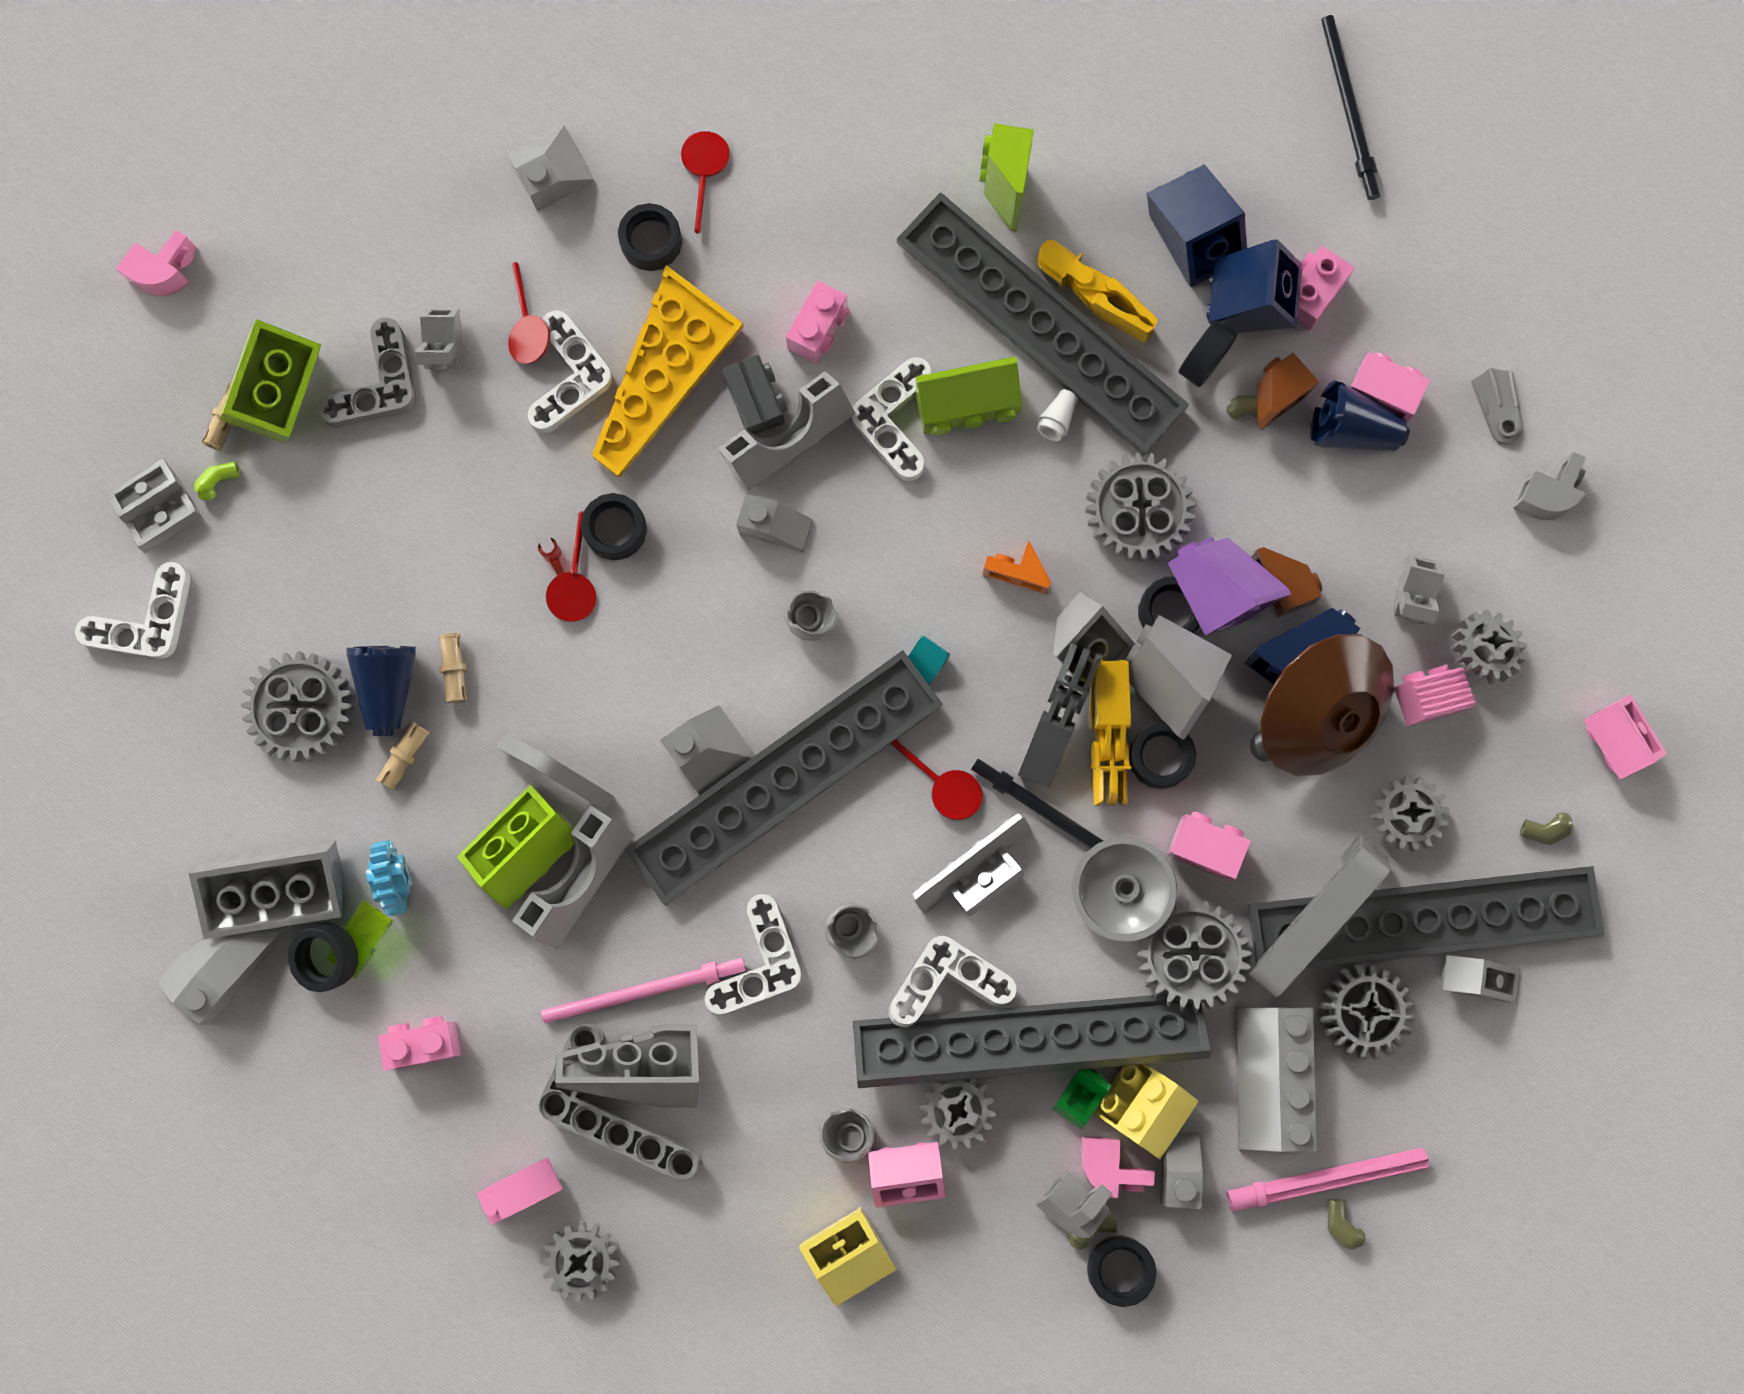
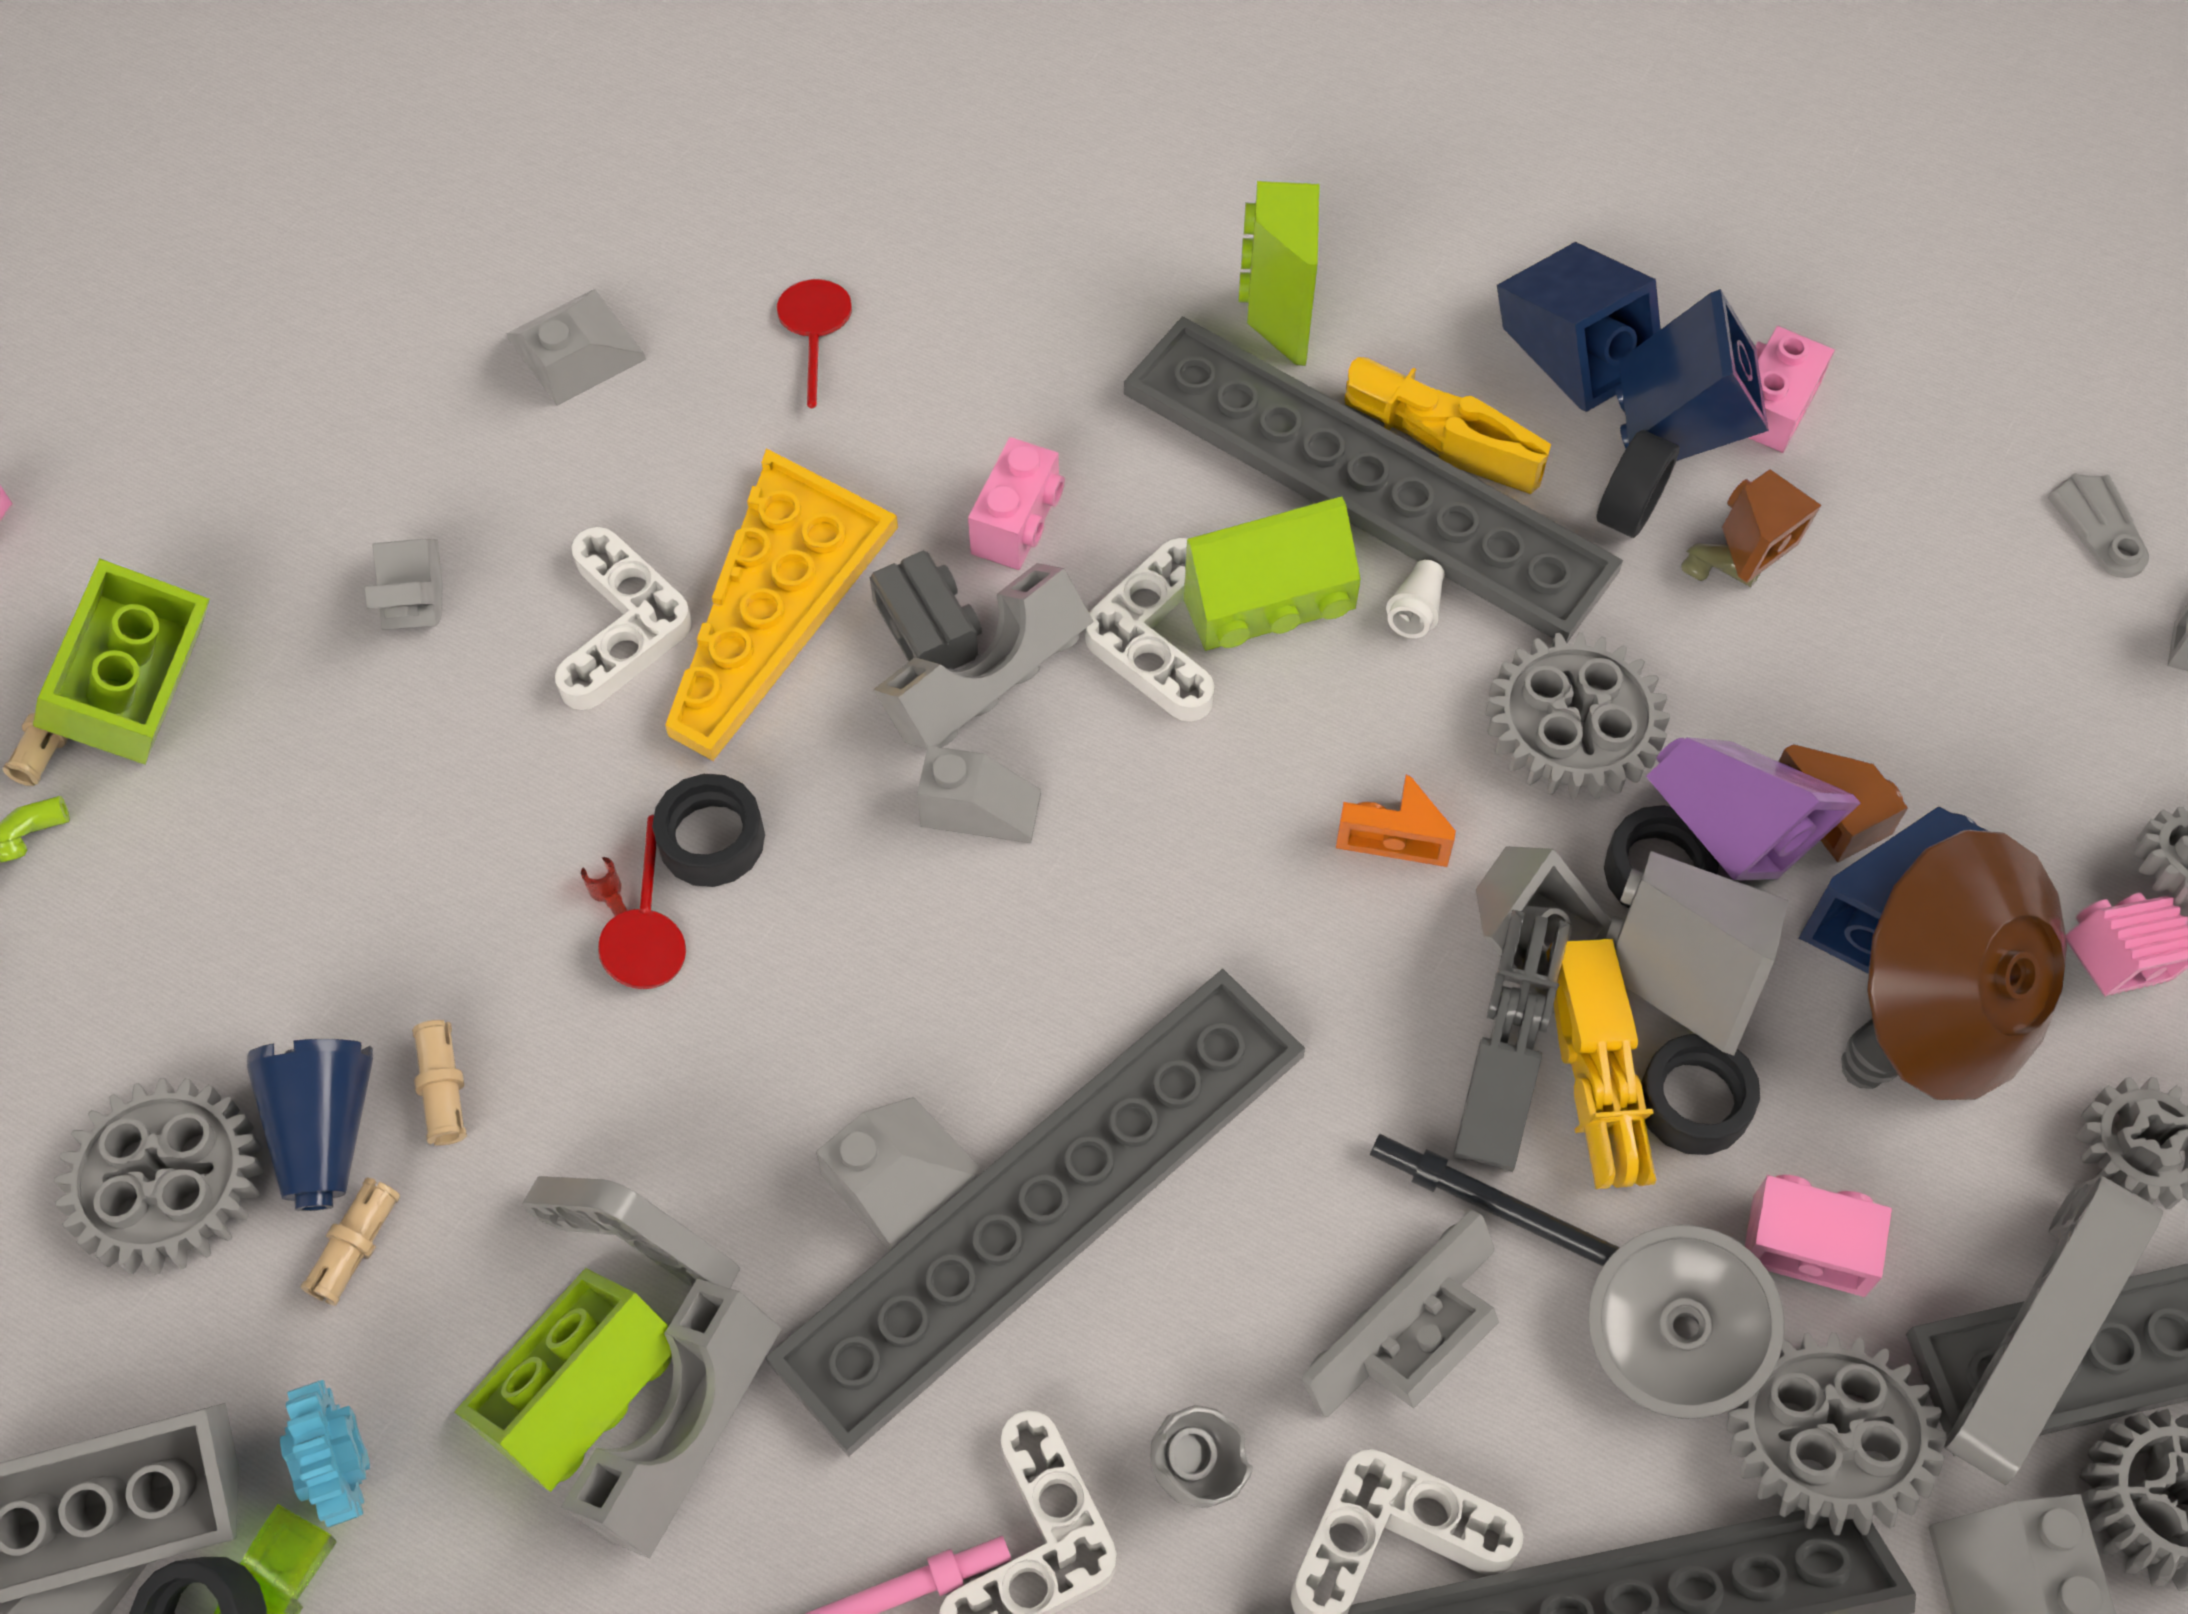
camera: 10 degrees left, 20 degrees down
(388, 383) = (322, 661): light grey beam -> none
(531, 334) = (554, 567): piece -> none
(644, 213) = (730, 386): black tyre -> none
(810, 615) = (1057, 931): light grey hair -> none
(928, 658) = (1269, 976): teal slope -> none
(954, 793) = (1343, 1198): red piece -> none
(1355, 422) = (1891, 556): dark blue cone -> none
(1365, 164) = (1809, 230): black bar -> none
(1390, 384) = (1928, 507): bright pink brick -> none
(1419, 590) = (2060, 791): light grey brick -> none

